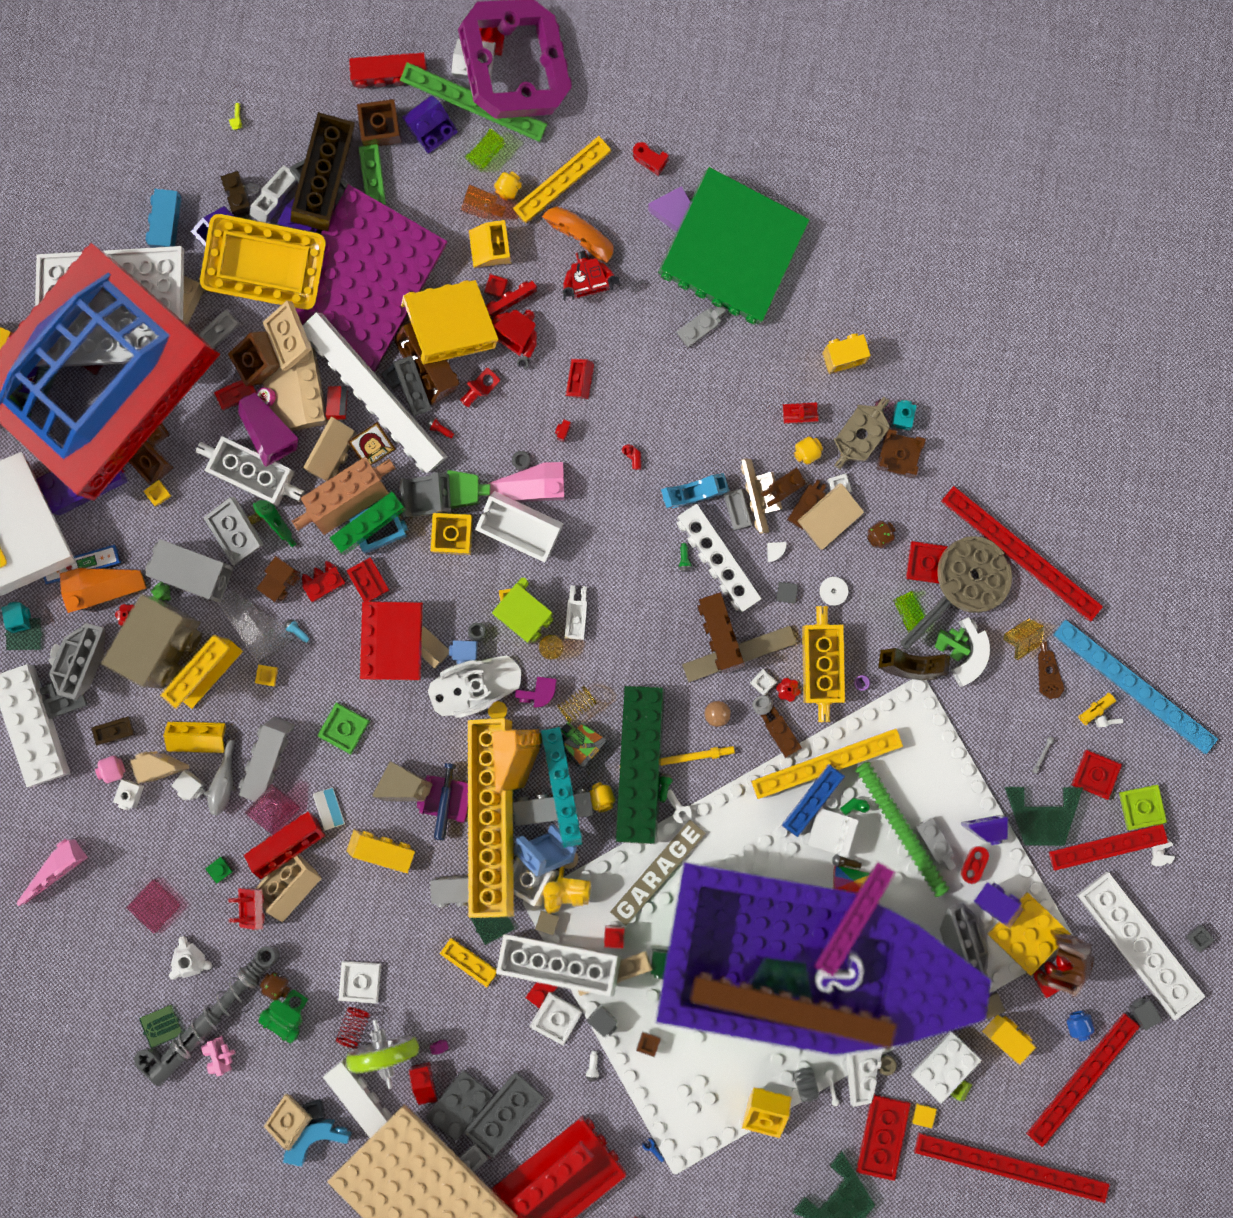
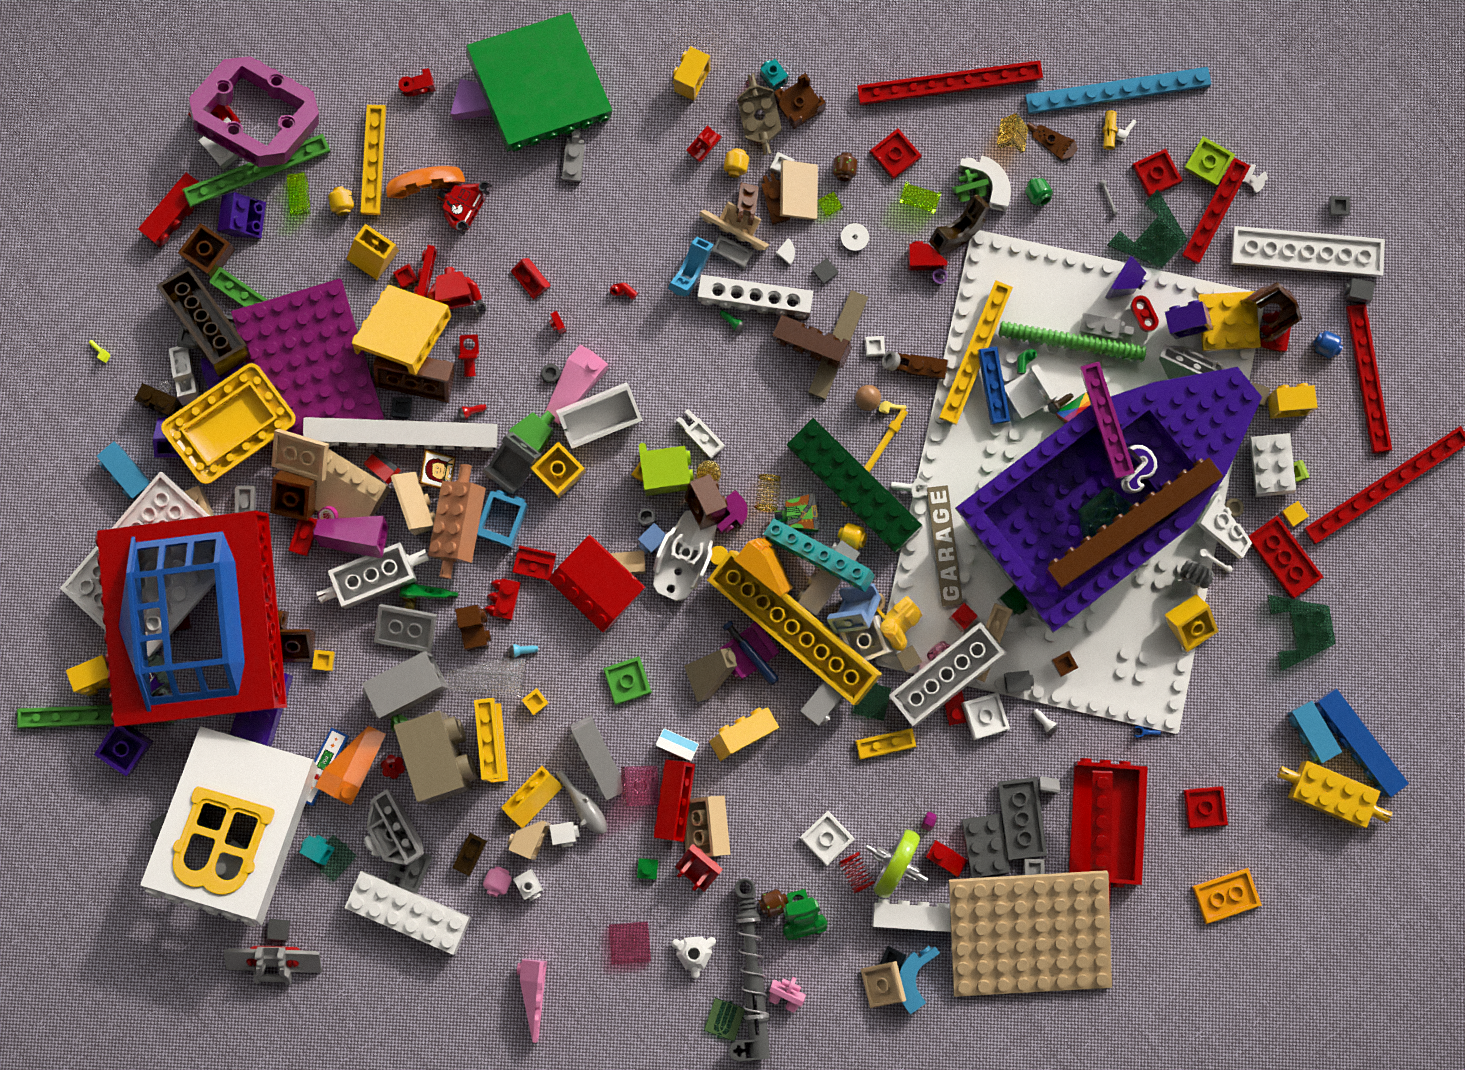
camera: 45 degrees left, 5 degrees down
(367, 523) = (494, 521): green brick -> none
(412, 385) = (421, 400): dark grey plate -> none
(474, 203) = (335, 231): clear orange torso -> none
(526, 665) = (705, 501): none -> reddish brown brick
(547, 1112) = (1049, 785): none -> light grey slope
(571, 937) = (935, 650): none -> clear pink arm
(665, 780) = (884, 480): green piece -> none
(724, 732) = (886, 406): none -> light yellow hand
(784, 693) = (896, 338): red plant -> none
(823, 664) = (901, 290): yellow brick -> none
(842, 549) = (830, 204): none -> clear neon green tile
(865, 658) = (924, 257): none -> red slope
(925, 623) = (937, 181): dark grey axle -> none
(959, 585) = (933, 144): dark tan plate -> none
(997, 698) = (1038, 191): none -> green head

